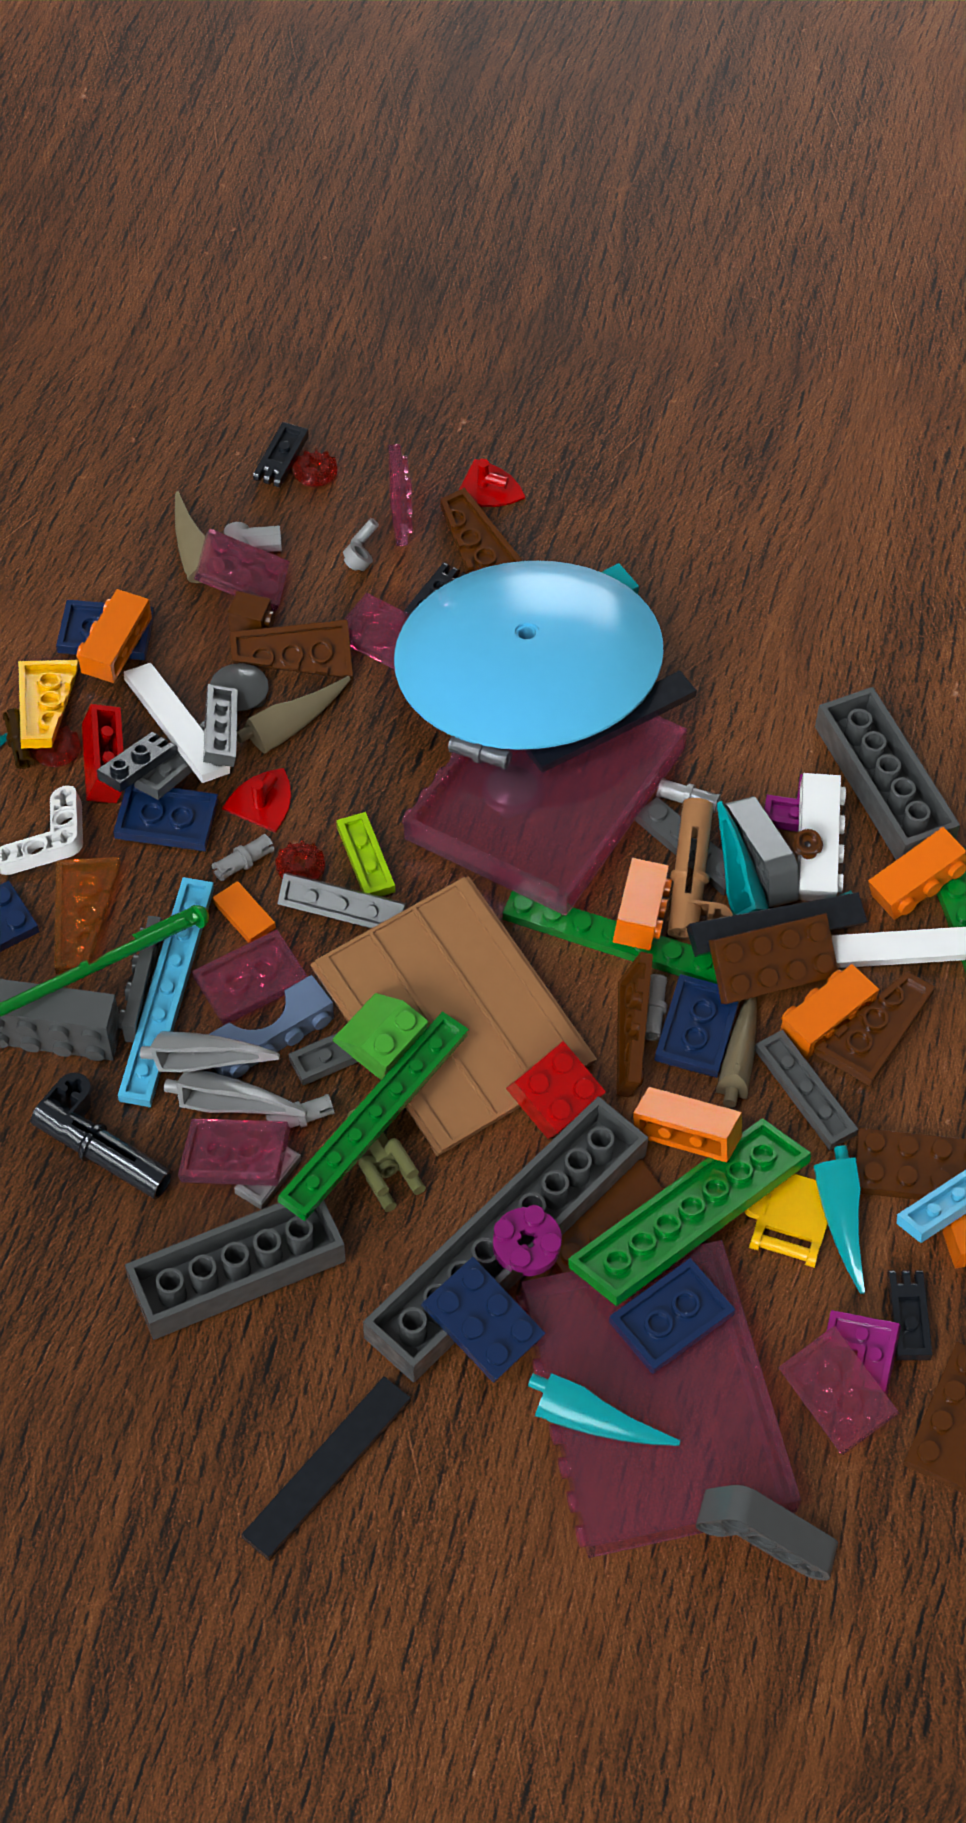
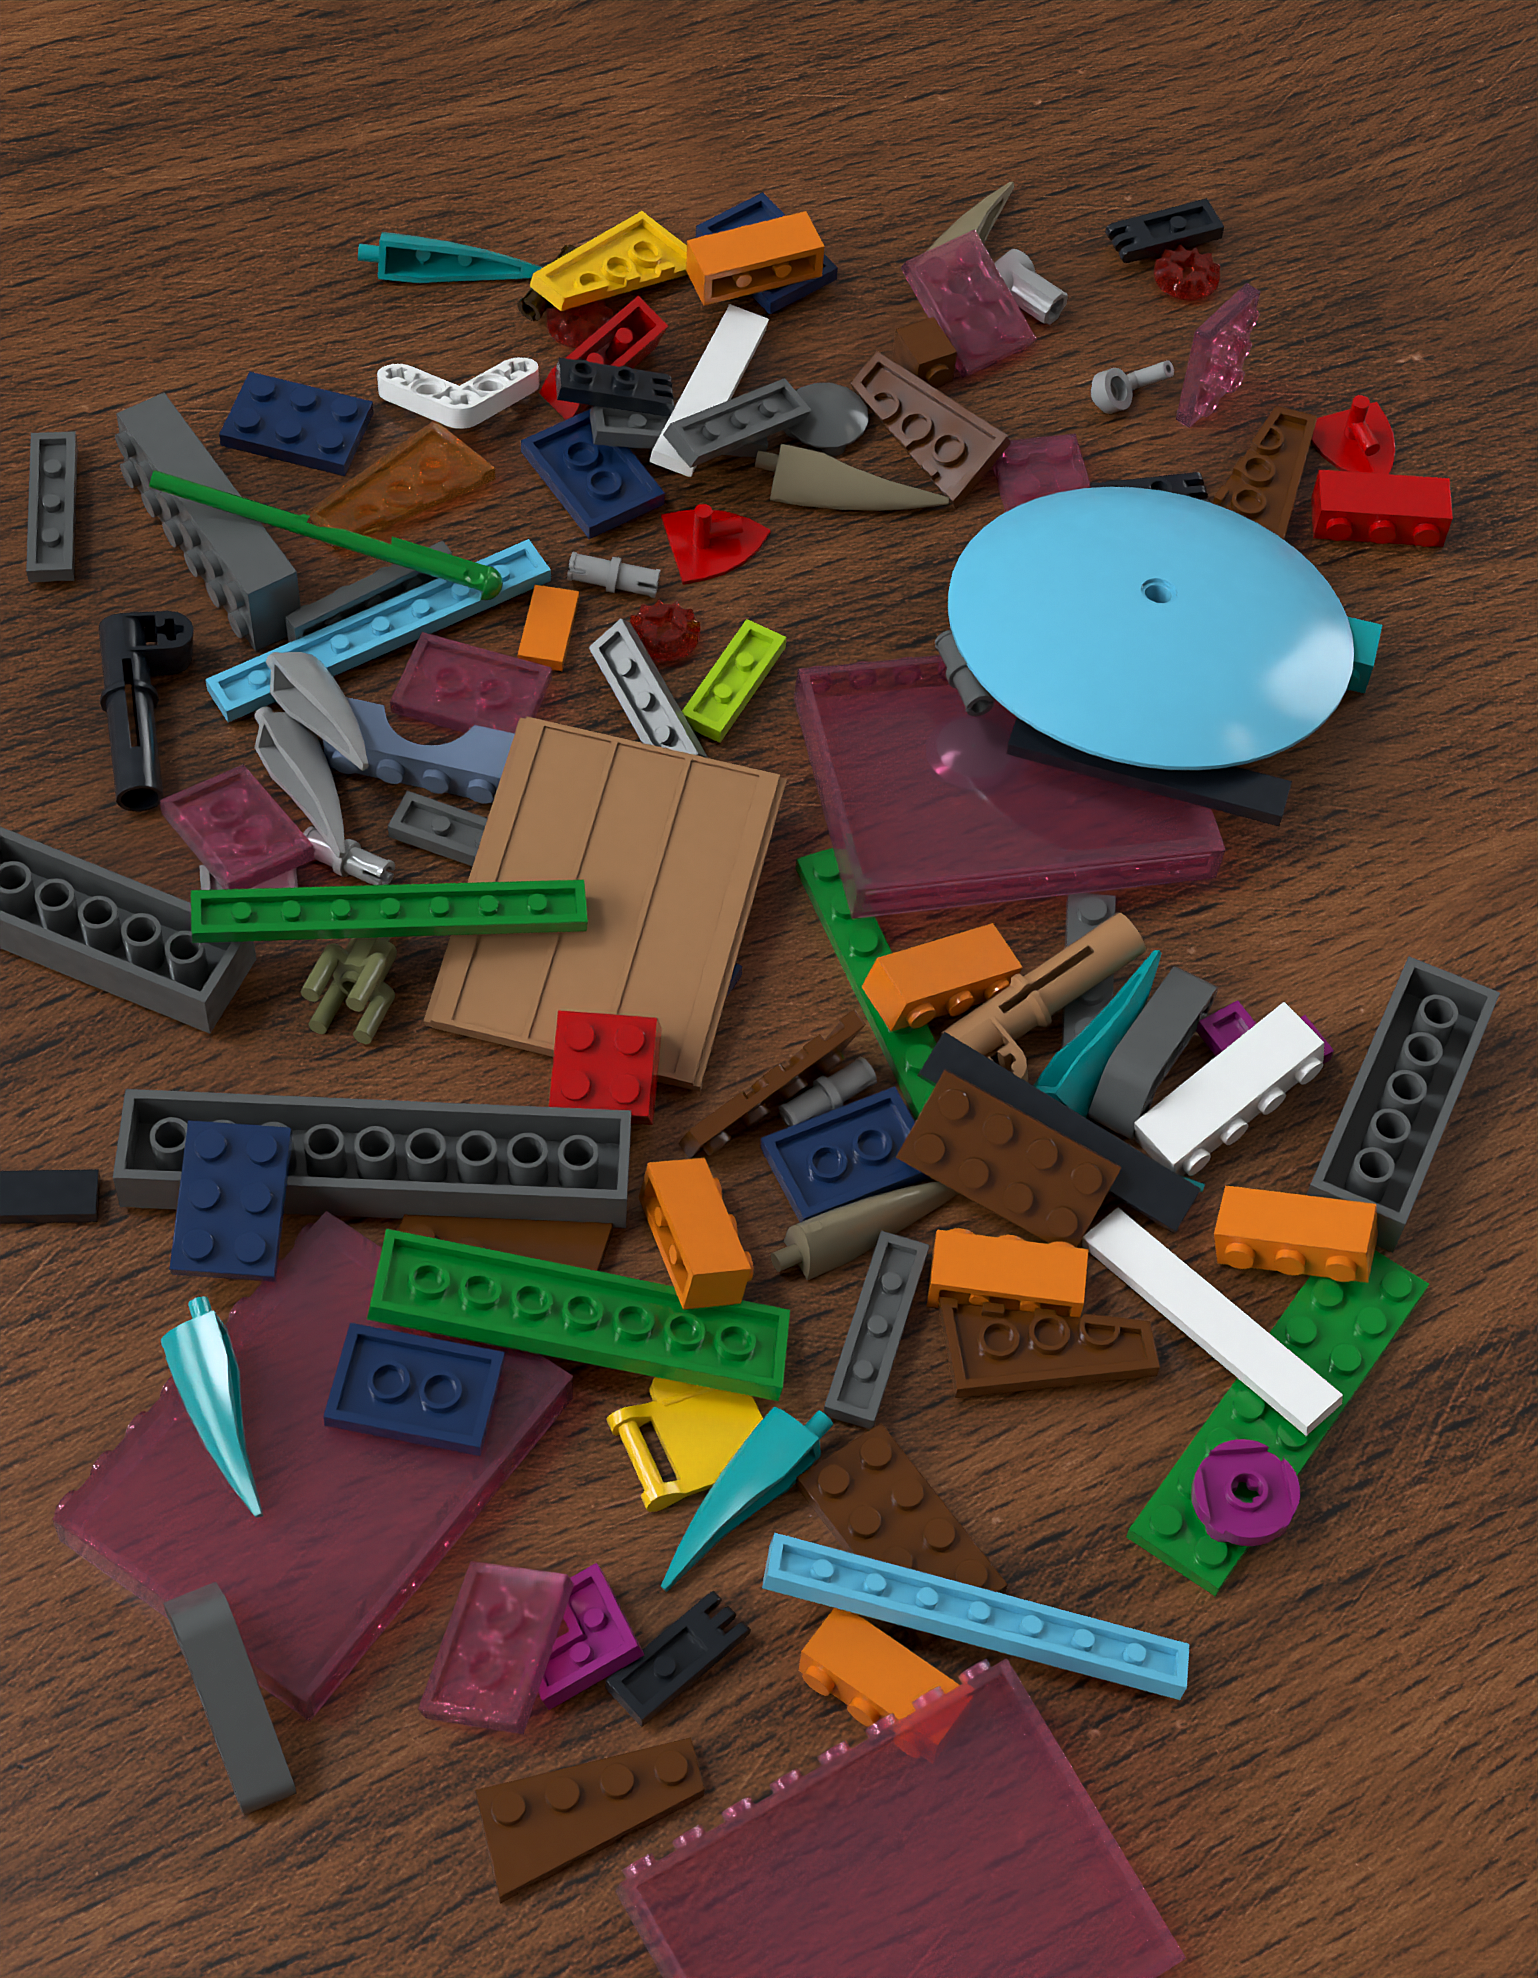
camera: 45 degrees right, 0 degrees up
(381, 1033) = (496, 843): bright green slope -> none
(521, 1258) = (363, 1144): magenta plate -> none
(544, 508) = (1381, 508): none -> red brick
(680, 792) = (1152, 924): light grey pin -> none
(810, 836) = (1194, 1066): reddish brown plate -> none

